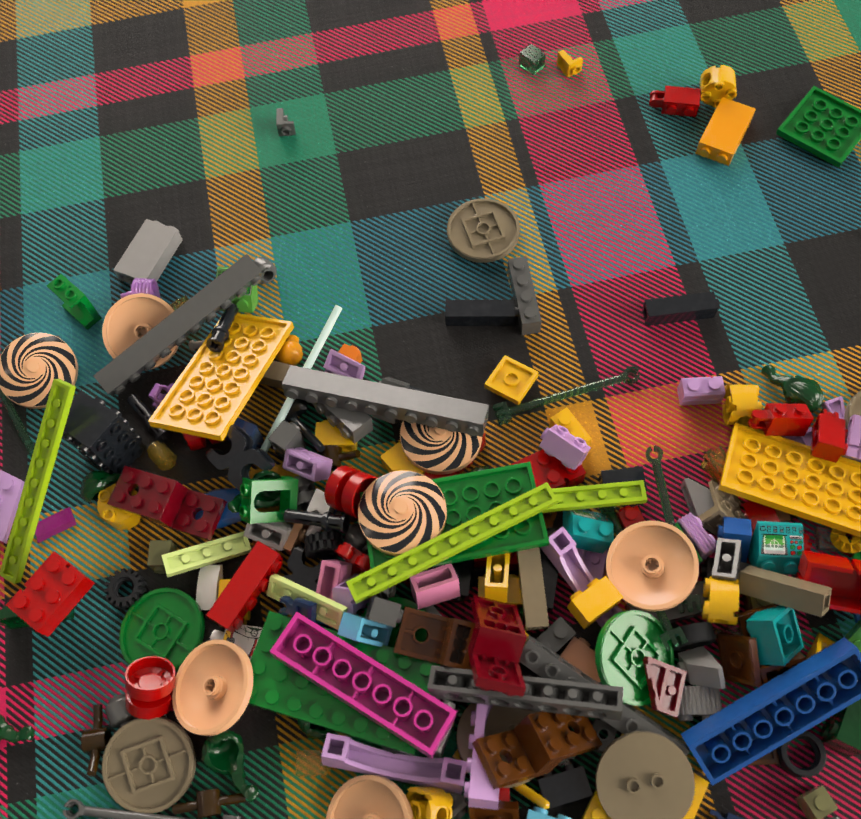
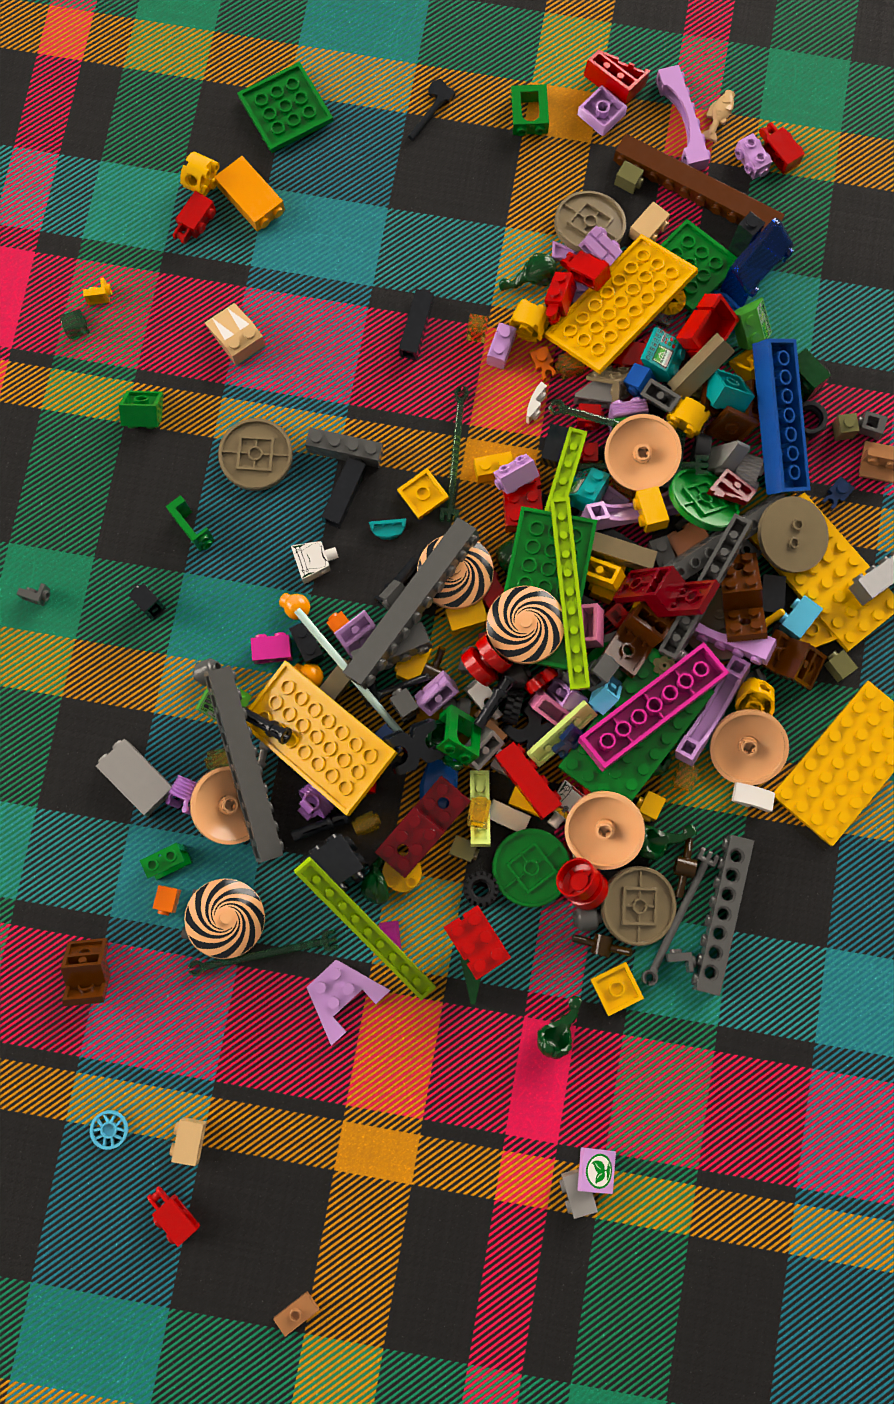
camera: 75 degrees left, 15 degrees up
(45, 319) = (166, 900): none -> orange brick
(53, 776) = (616, 988): none -> yellow plate
(196, 550) = (479, 812): none -> clear yellow brick
(265, 735) = (650, 806): none -> yellow brick
(304, 312) = (271, 648): none -> dark pink brick
(306, 199) = (147, 601): none -> black brick
(310, 337) = (306, 643): none -> black brick
(352, 314) = (292, 603): none -> light orange piece
(400, 193) = (179, 510): none -> green panel
(402, 312) = (313, 559): none -> white torso
(421, 675) = (659, 662): none -> olive plant
(462, 364) = (388, 528): none -> teal plate
(465, 612) = (616, 614): none -> red brick
(481, 131) = (141, 409): none -> green slope
(587, 173) = (235, 333): none -> tan slope
(668, 445) = (535, 402): none -> white slope
(678, 503) = (592, 408): none -> red brick
(706, 361) = (477, 328): none -> clear yellow brick
(707, 437) = (542, 361): none -> orange plate

